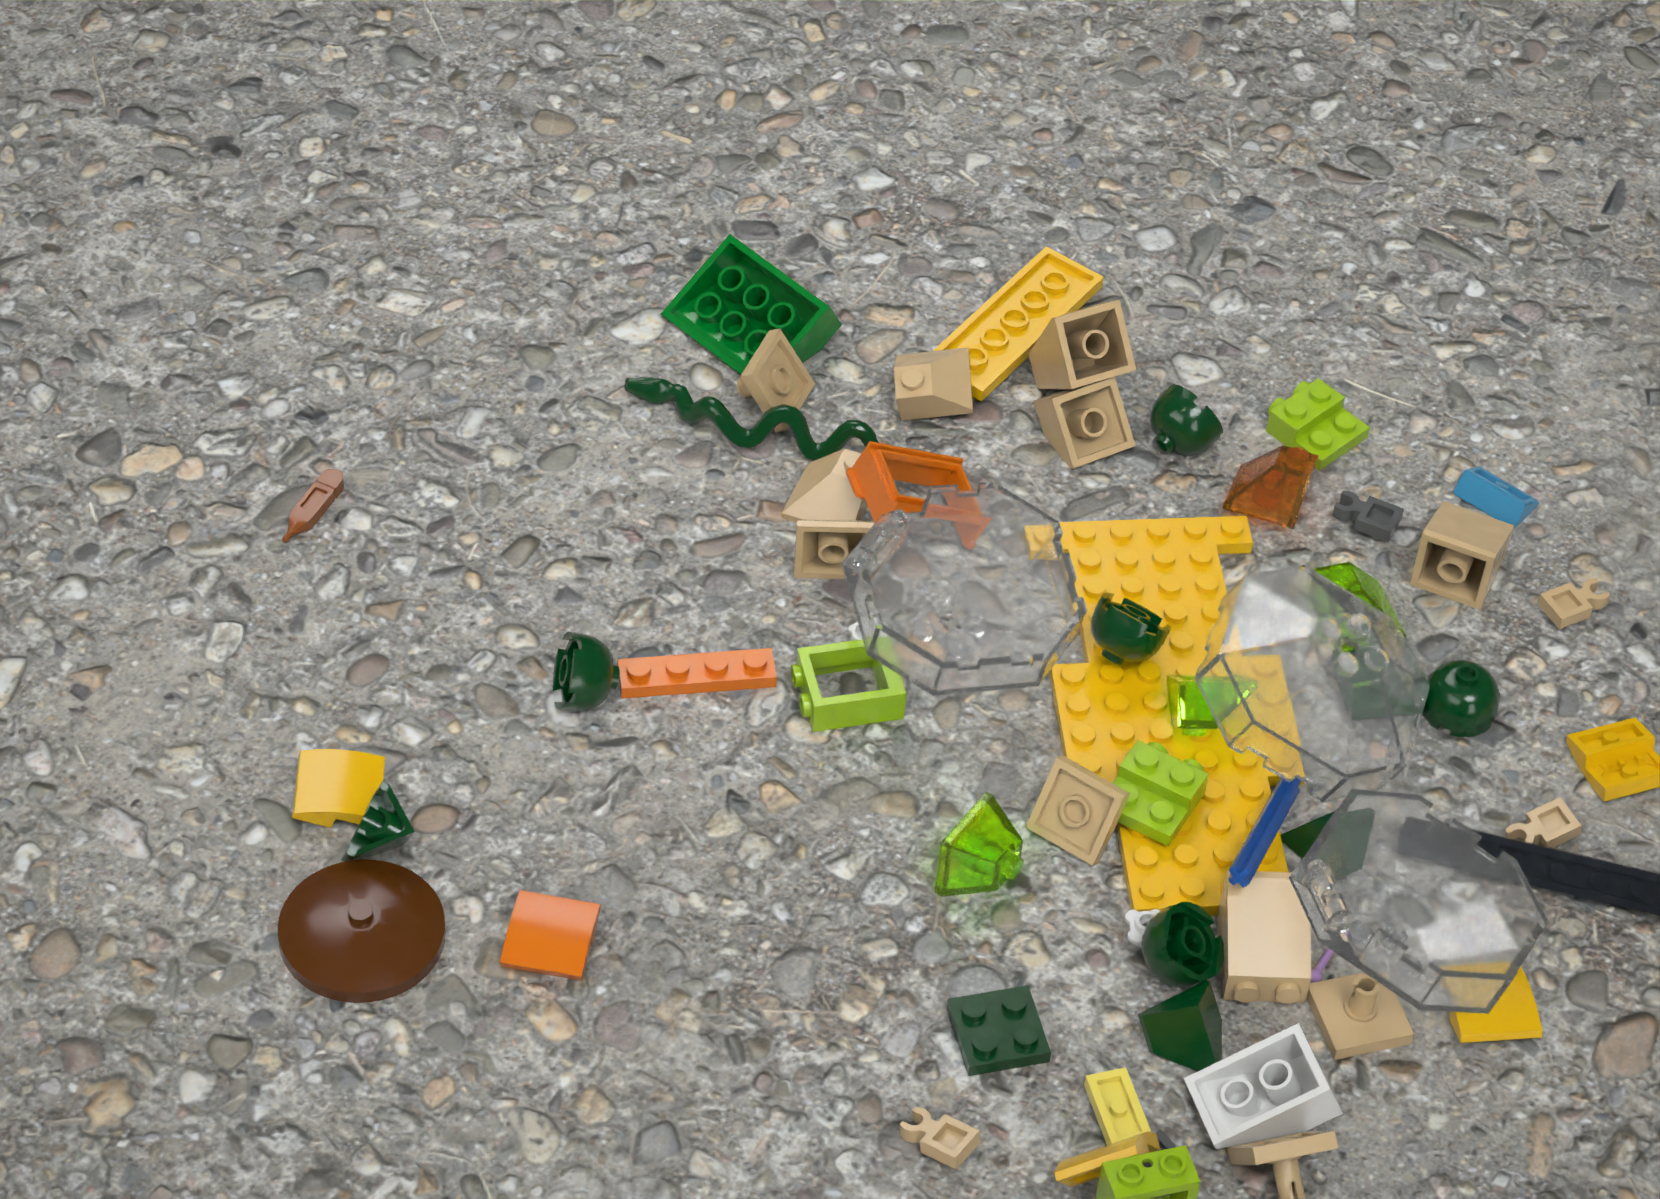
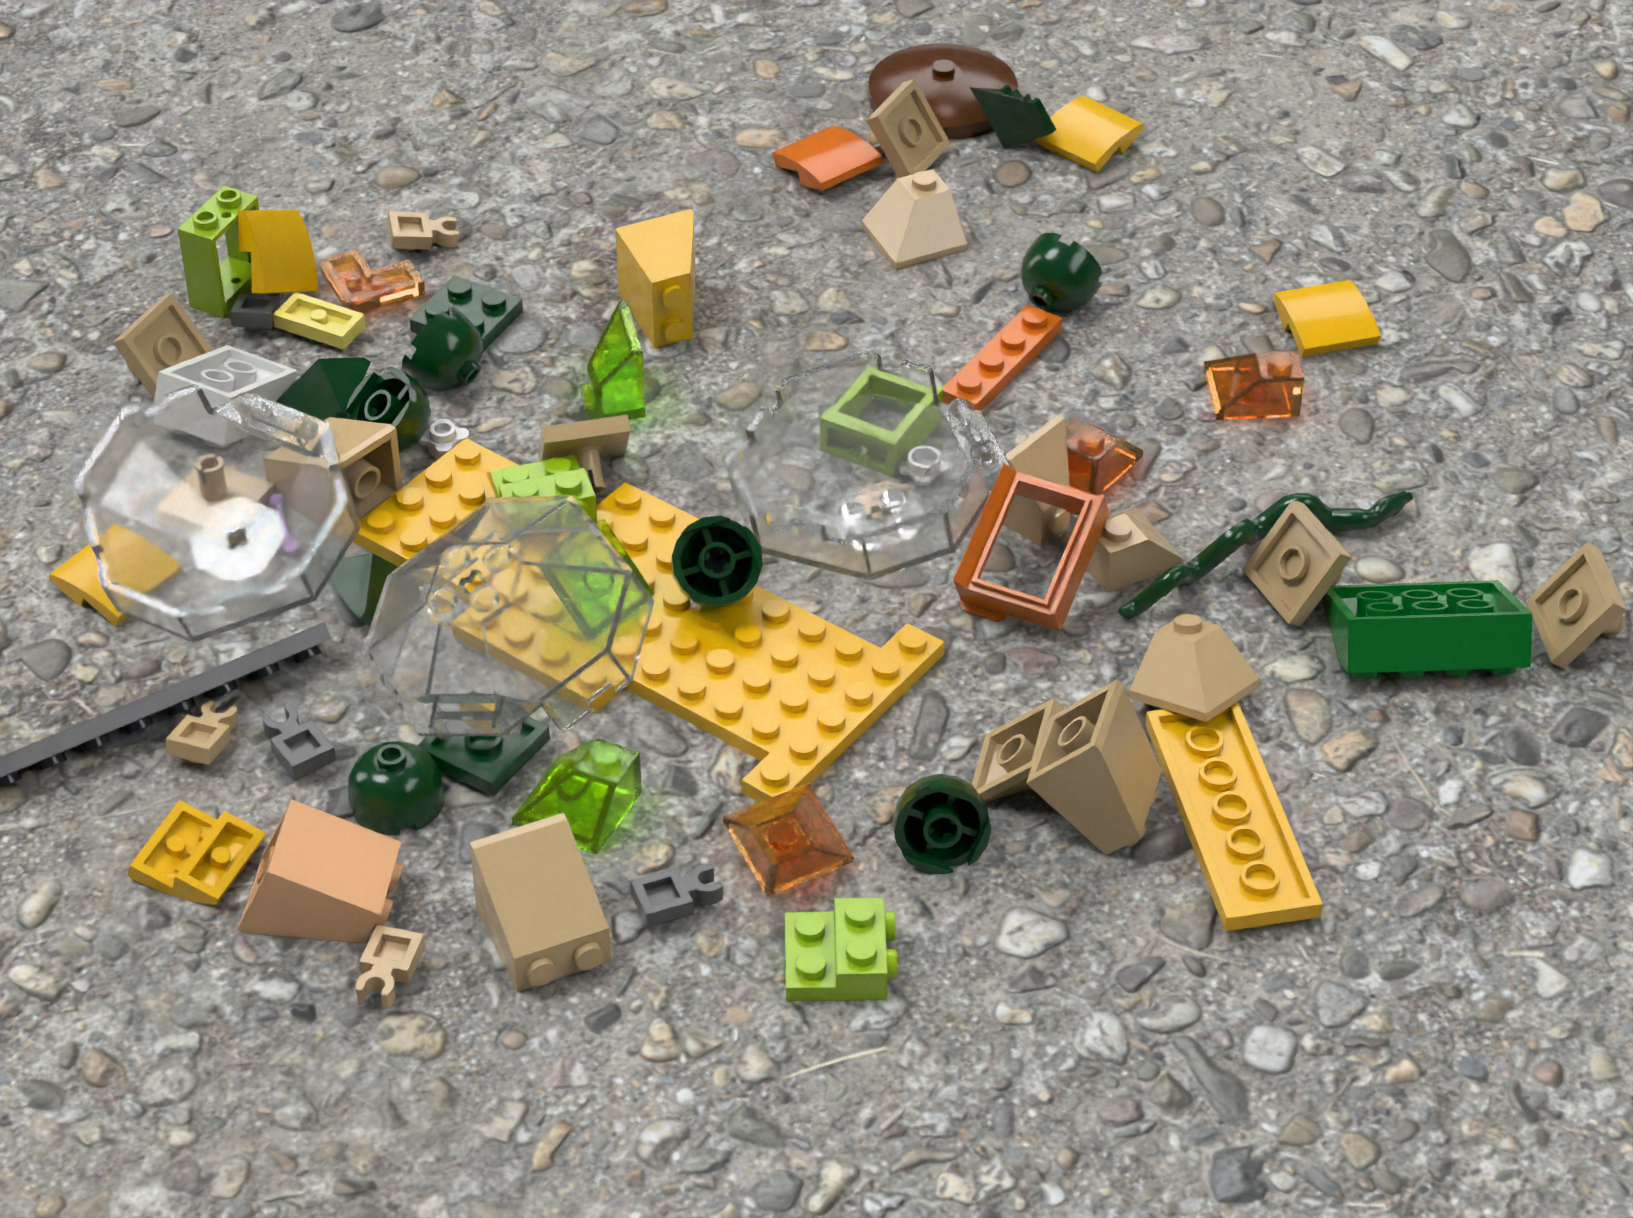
camera: 135 degrees right, 5 degrees down
(314, 502) = (1434, 262): piece -> none
(457, 519) = (1327, 318): none -> yellow slope
(486, 879) = (907, 130): none -> tan tile
(579, 515) = (1255, 385): none -> clear orange slope
(585, 821) = (915, 221): none -> tan slope
(674, 243) = (1577, 606): none -> tan tile
(757, 561) = (1096, 456): none -> clear orange slope
(845, 894) = (659, 275): none -> yellow slope
(1046, 1110) = (369, 289): none -> clear orange plate
(1076, 979) = (445, 352): none -> dark green cylinder
(1263, 832) = (398, 468): blue axle -> none
(1491, 773) = (298, 746): none -> plate
(1494, 496) = (588, 1034): dark azure slope -> none
(1573, 668) = (322, 879): none -> light nougat slope

